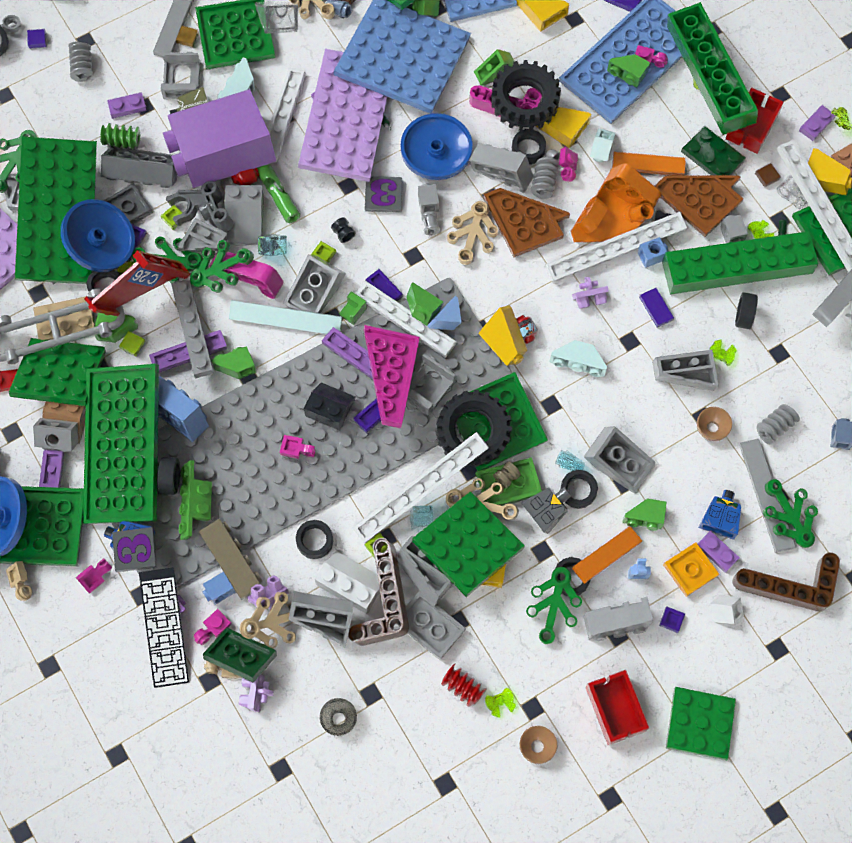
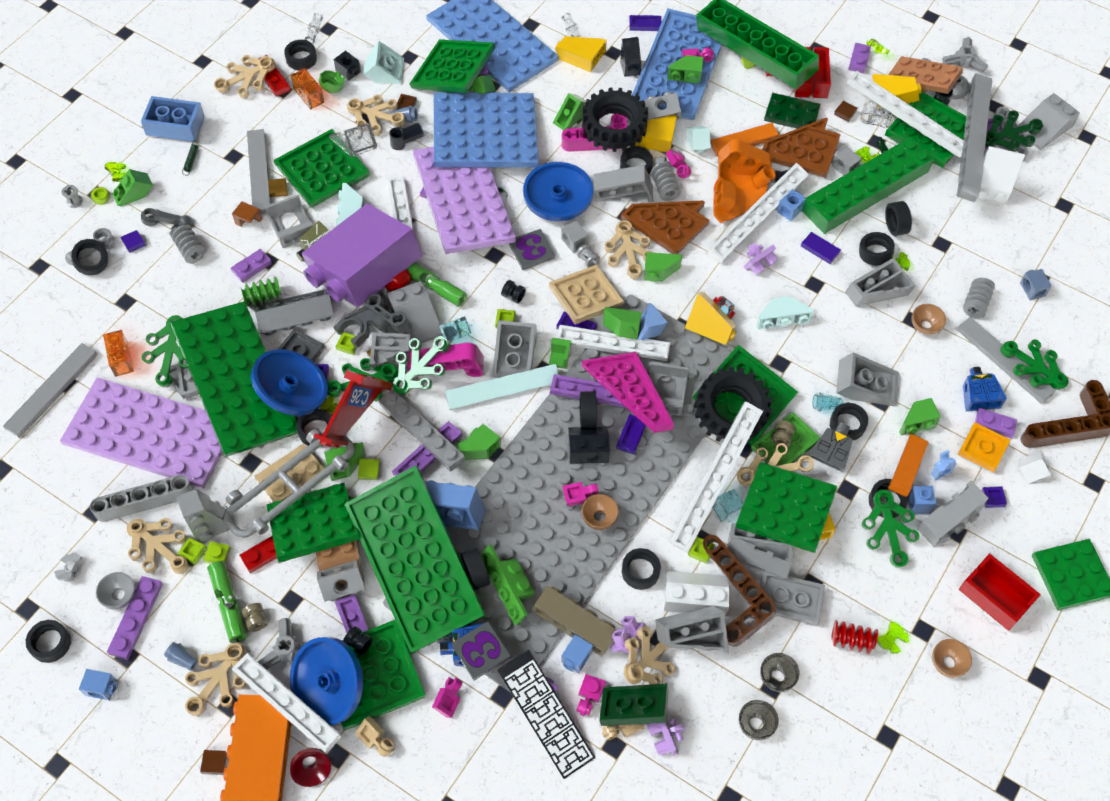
camera: 25 degrees left, 10 degrees down
(42, 492) = (358, 641): none -> black wheel
(89, 36) = (164, 217): none -> dark grey piece
(144, 52) = (246, 213): none -> dark orange panel
(303, 464) = (603, 504): none -> medium nougat piece
(327, 30) = (400, 136): none -> black piece
(343, 374) = (588, 409): none -> black tyre
(376, 675) = (784, 664): none -> clear smoke piece
(406, 260) = (585, 294): none -> tan plate
(491, 262) = (660, 266): none -> bright green slope
(583, 32) = (630, 56): none -> black slope
(592, 104) = (669, 99): none -> light grey brick
(600, 592) = (922, 499): none -> medium blue brick
(711, 320) = (876, 238): none -> black tyre

